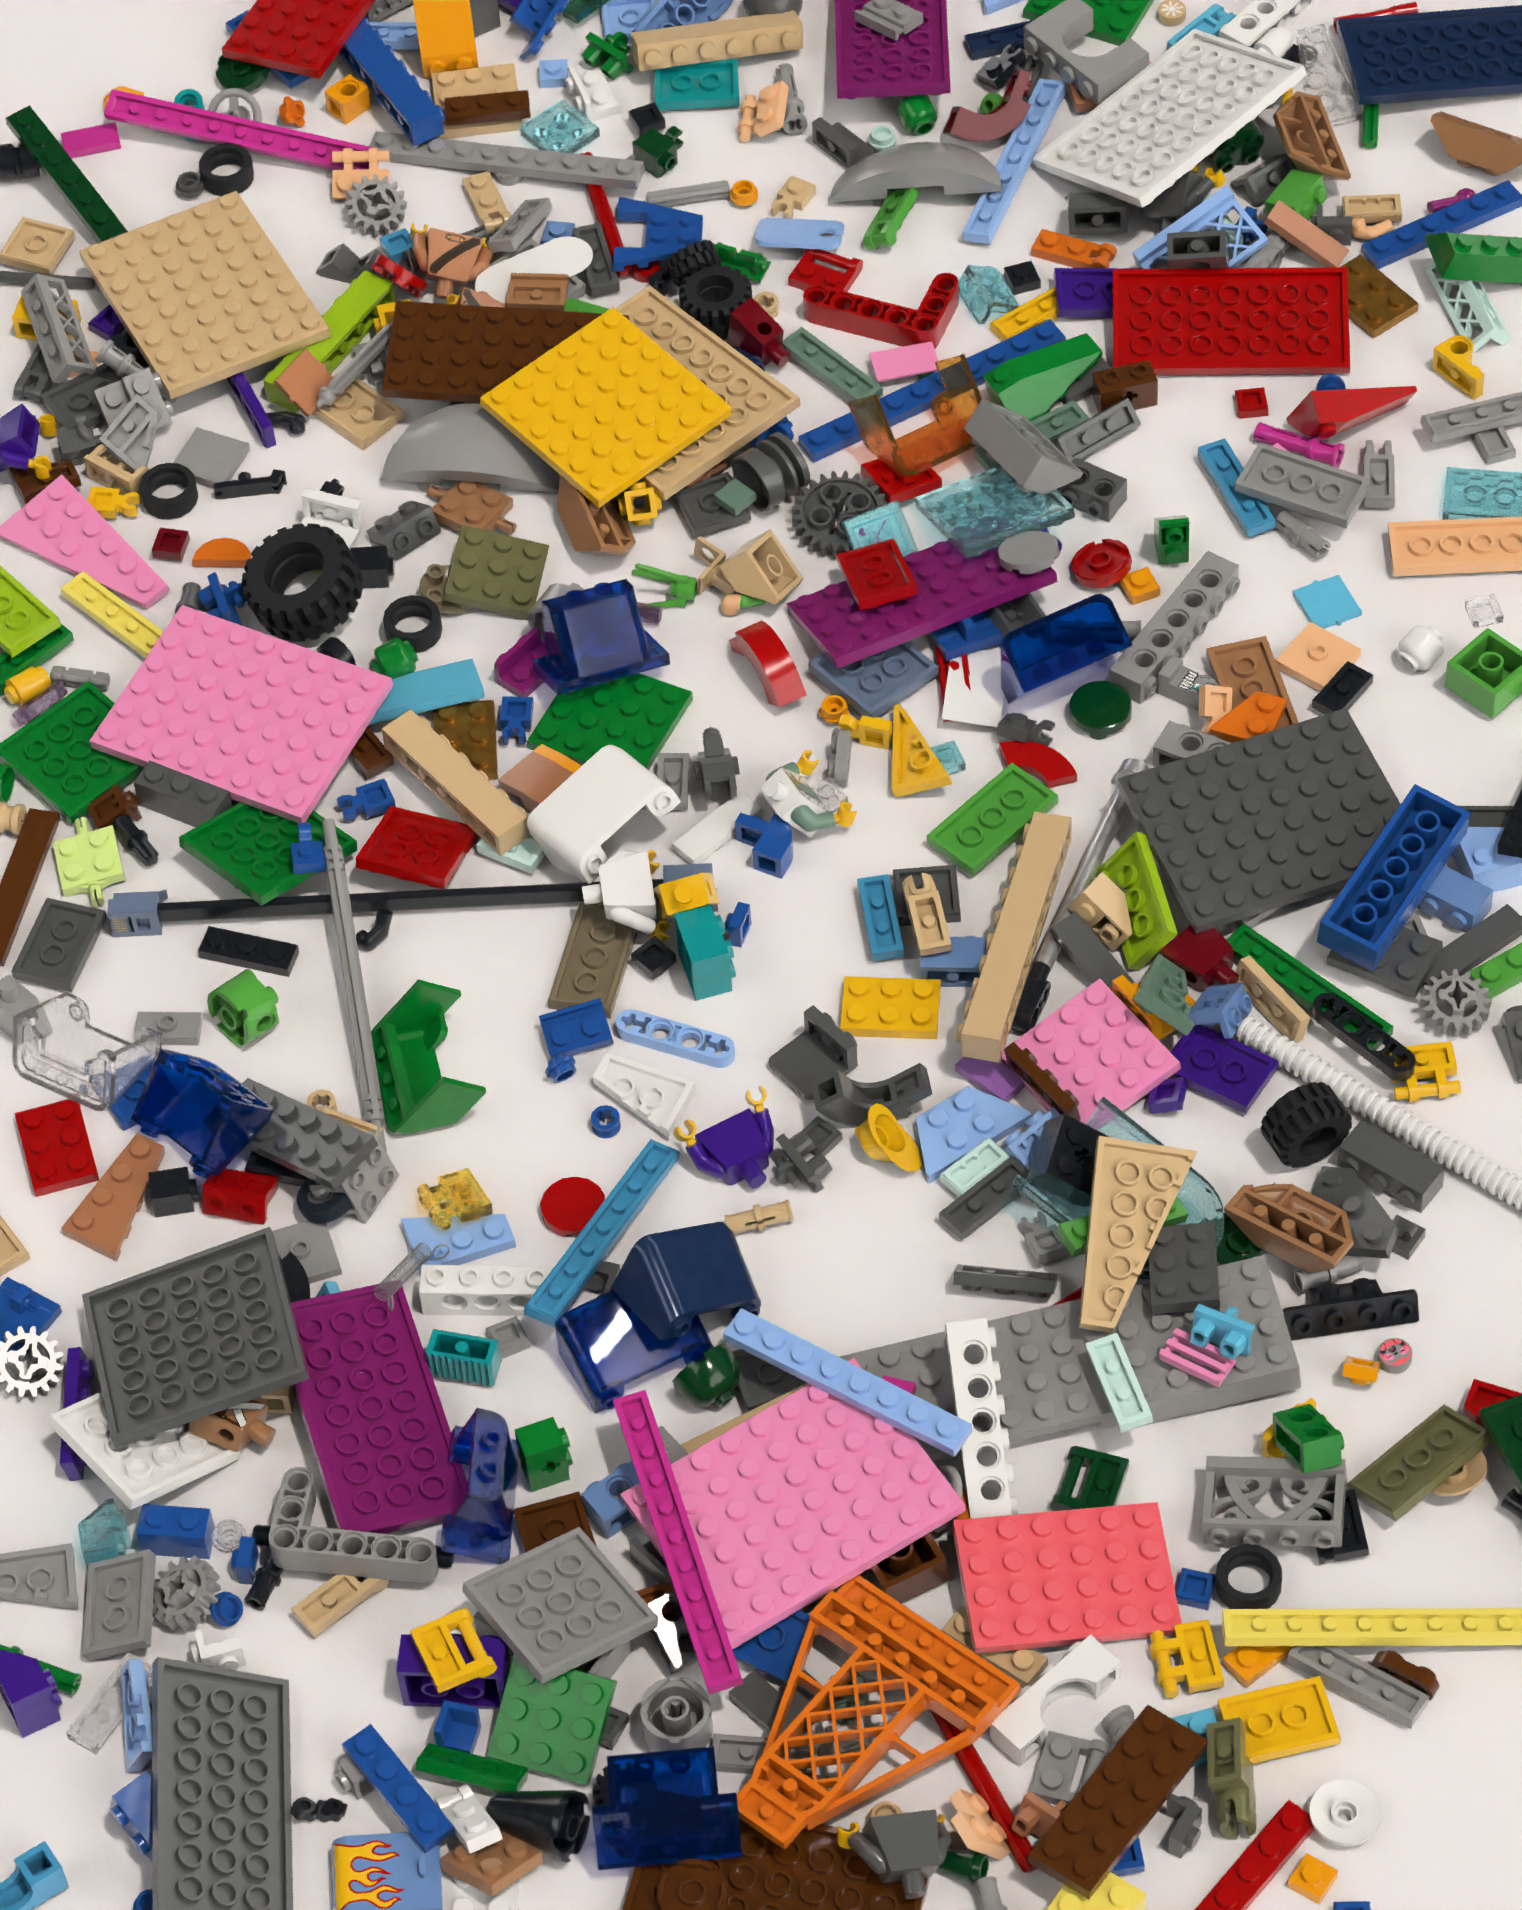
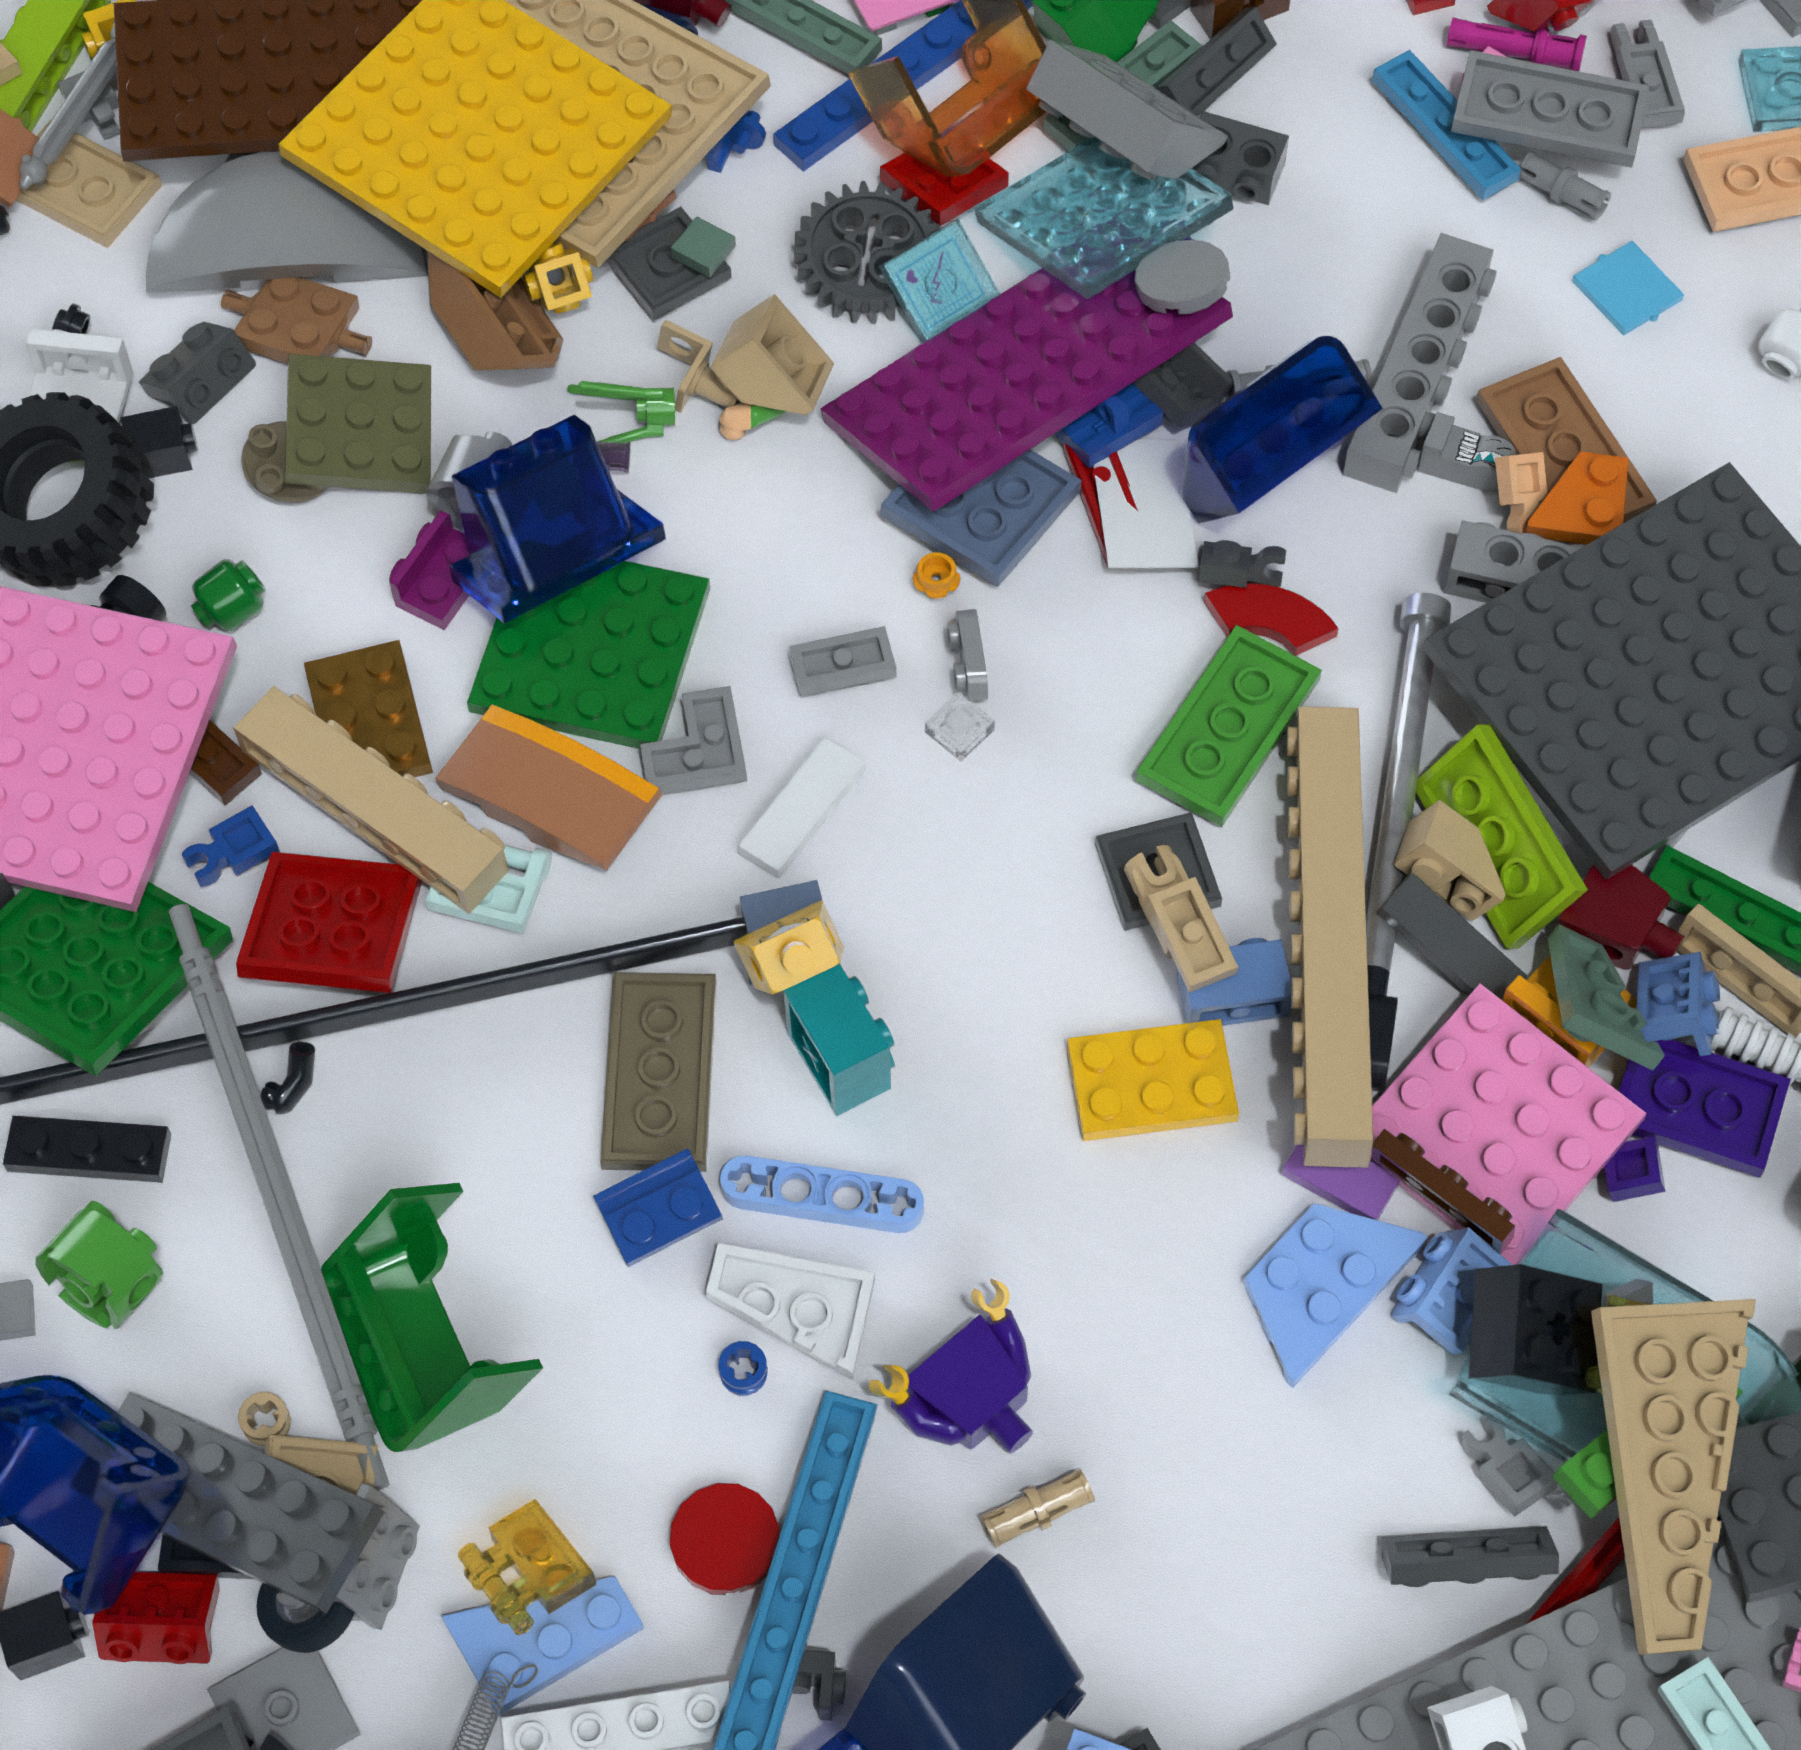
camera: 15 degrees left, 10 degrees up
(307, 855) = (153, 972): blue plate -> none
(414, 606) = (237, 499): black tyre -> none
(431, 690) = (297, 638): medium azure tile -> none
(515, 717) = (440, 663): blue plate -> none
(561, 1068) = (649, 1283): blue plate -> none
(593, 807) = (612, 818): white windscreen -> none
(628, 892) = (694, 953): white torso -> none
(653, 957) = (754, 1054): black plate -> none
(716, 764) = (782, 705): dark grey hinge -> none
(738, 924) = (876, 973): blue plate -> none
(763, 749) = (843, 661): none -> light grey plate
(770, 661) = (824, 512): arch -> none
(770, 843) = (899, 817): blue brick -> none
(772, 470) = (752, 196): dark grey wheel -> none
(795, 1150) = (1105, 1407): dark grey hips -> none
(797, 801) = (922, 745): torso -> none
(815, 1053) = (1058, 1192): dark grey bracket -> none
(822, 1135) = (1096, 1337): dark grey tile -> none
(850, 1100) = (1159, 1265): dark grey arch -> none
(870, 731) = (1003, 604): yellow plate -> none
(877, 574) = (957, 345): red plate -> none
(880, 917) = (1099, 924): dark azure plate -> none
(887, 1140) = (1216, 1330): yellow piece -> none
(913, 761) = (1084, 648): yellow wing -> none
(950, 757) = (1127, 633): clear light blue plate -> none
(973, 1167) = (1365, 1354): light aqua plate -> none
(983, 1199) = (1397, 1406): dark grey plate -> none
(1100, 708) = (1343, 512): dark green tile -> none
(1101, 563) = (1281, 274): red tile -> none
(1140, 586) = (1345, 301): light orange plate -> none
(1172, 539) = (1378, 219): green slope -> none
(1316, 656) = (1643, 379): light nougat plate -> none
(1343, 689) = (1697, 429): black plate -> none

